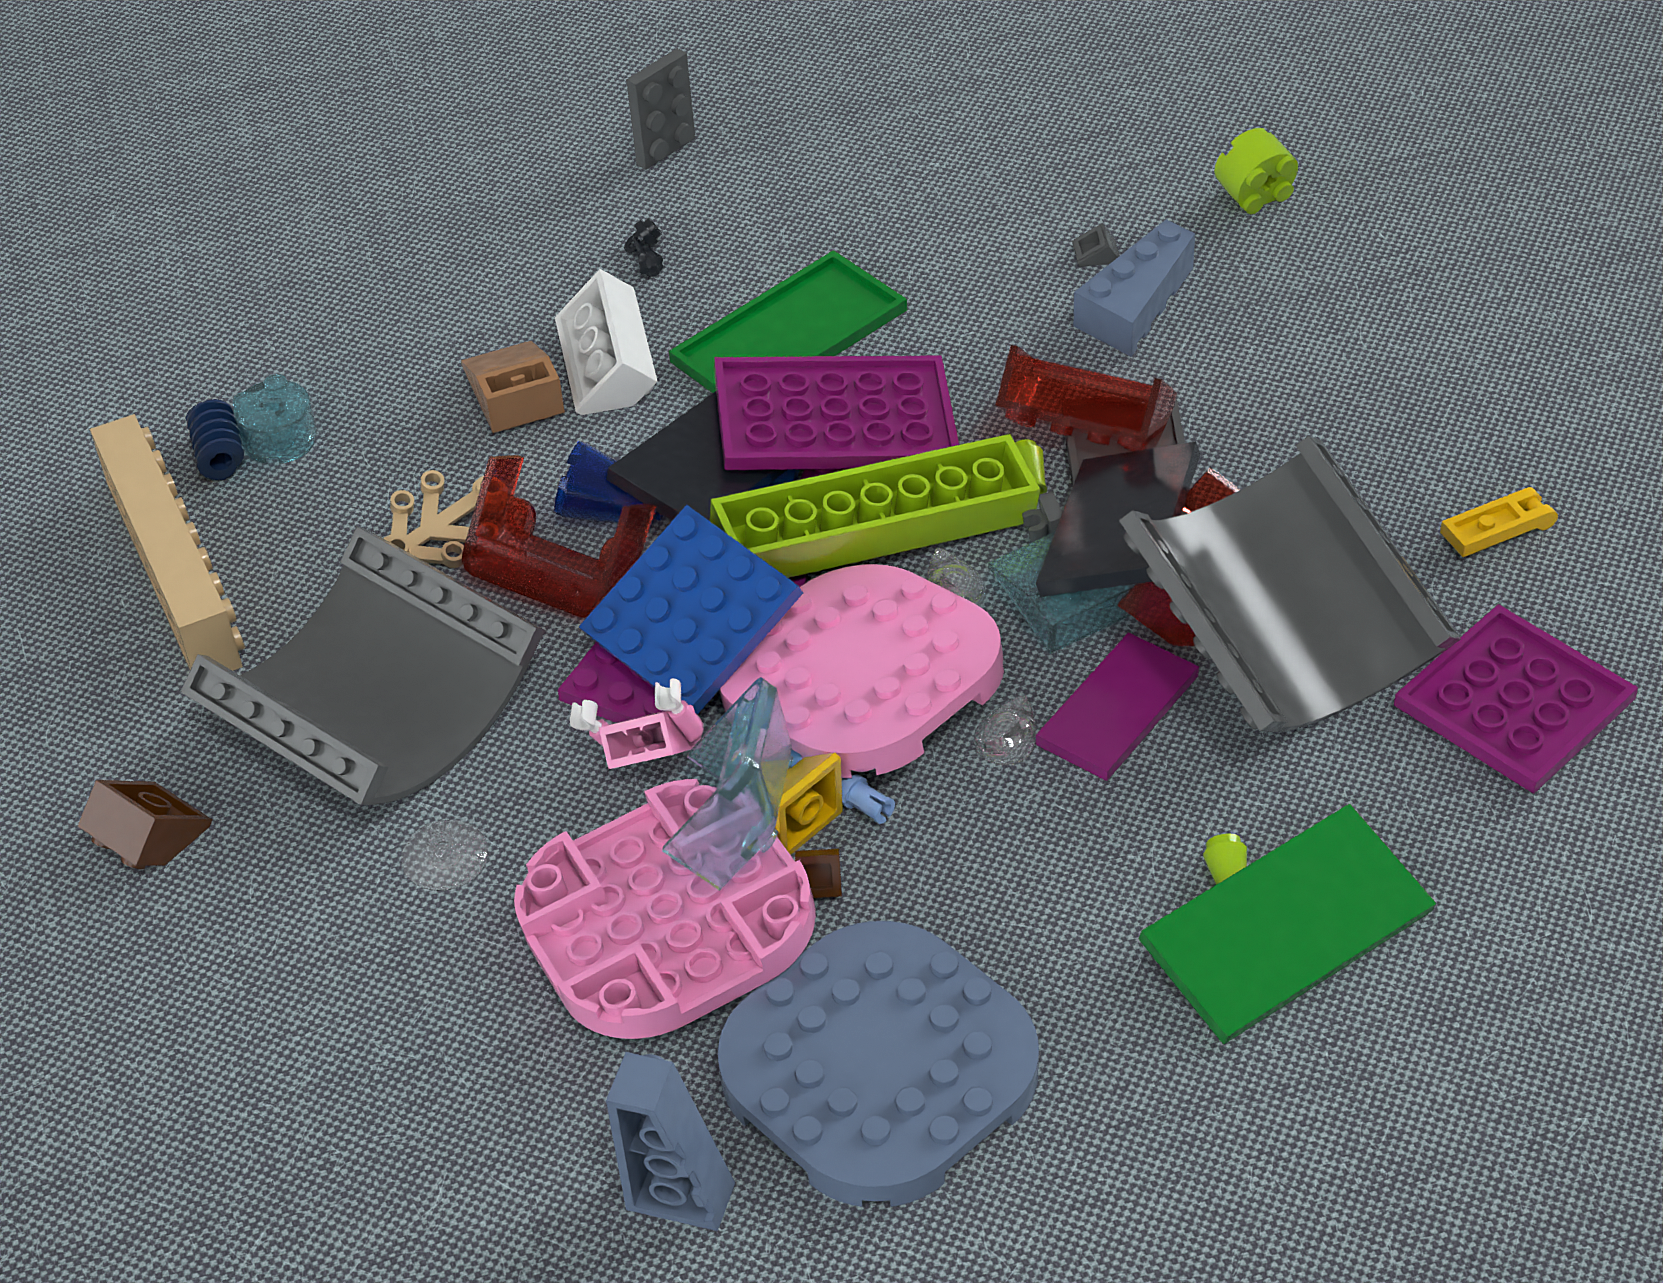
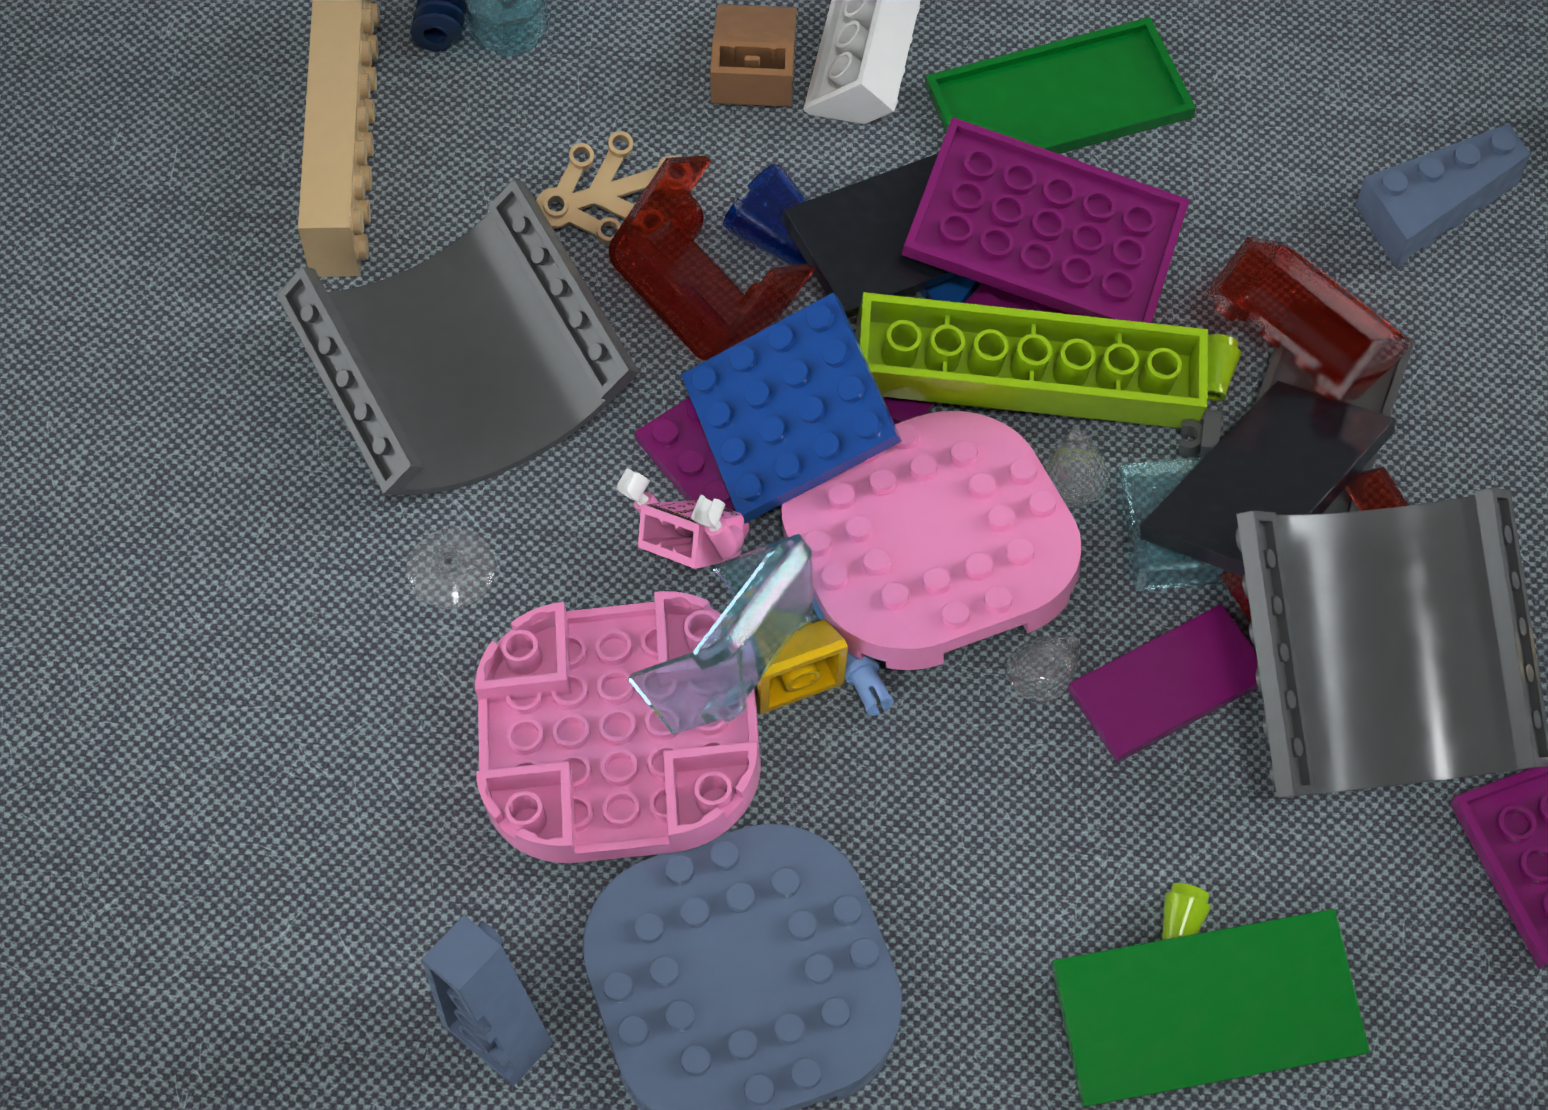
camera: 20 degrees right, 15 degrees up
(141, 821) = (192, 415): reddish brown slope -> none
(822, 871) = (783, 748): reddish brown tile -> none
(1095, 247) = (1426, 120): dark grey slope -> none

